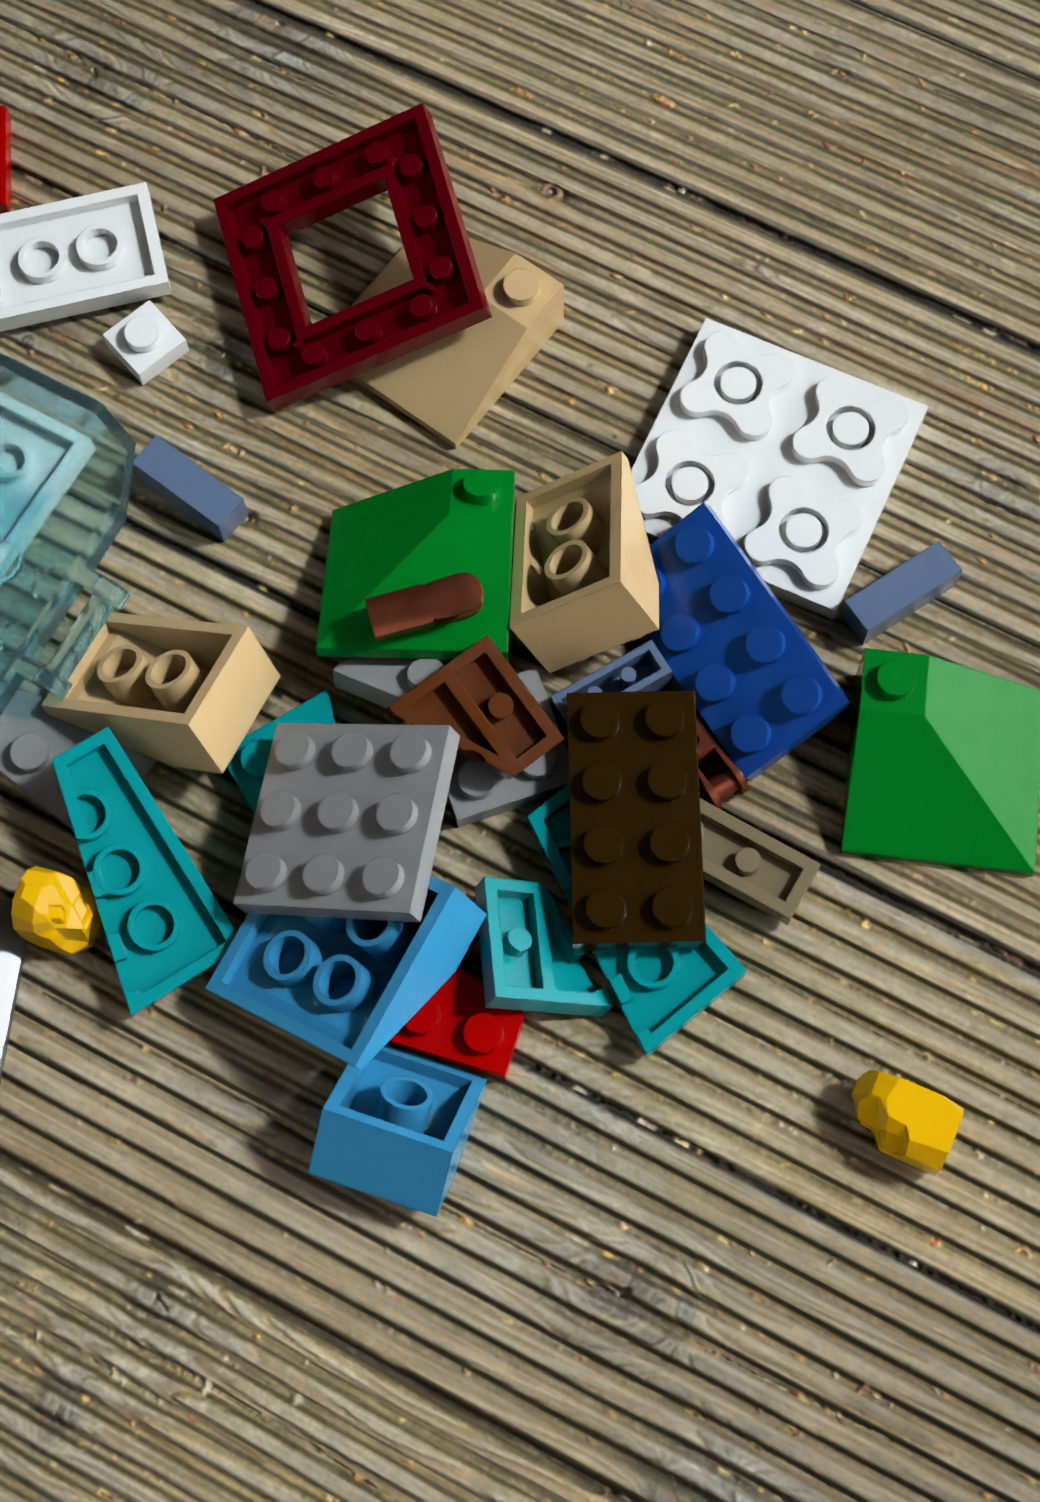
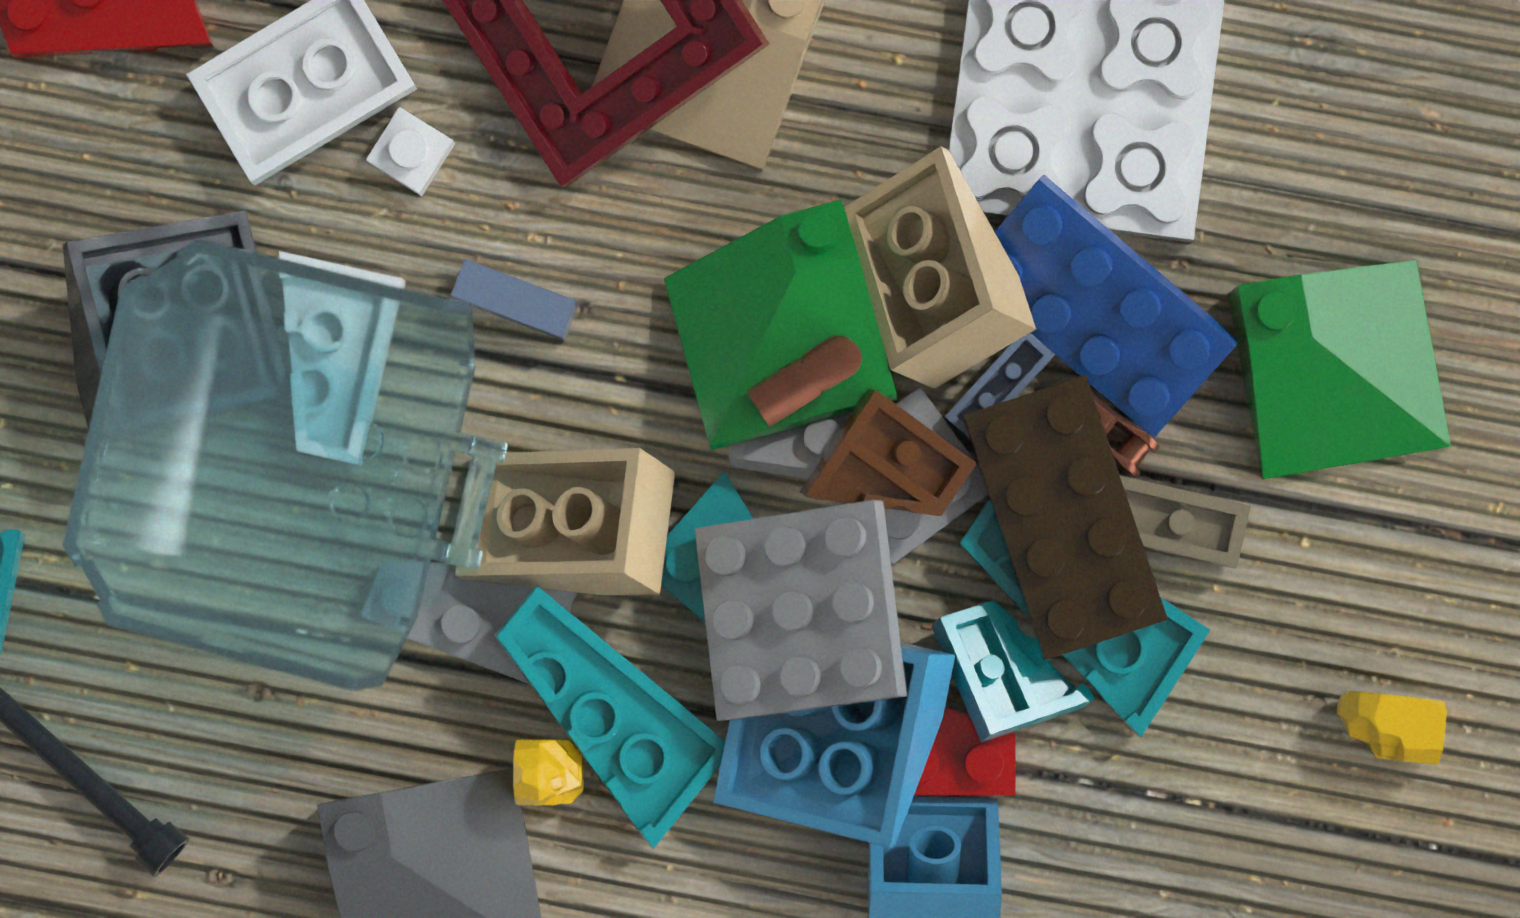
camera: 15 degrees left, 15 degrees up
(900, 592) = (1251, 199): sand blue piece -> none

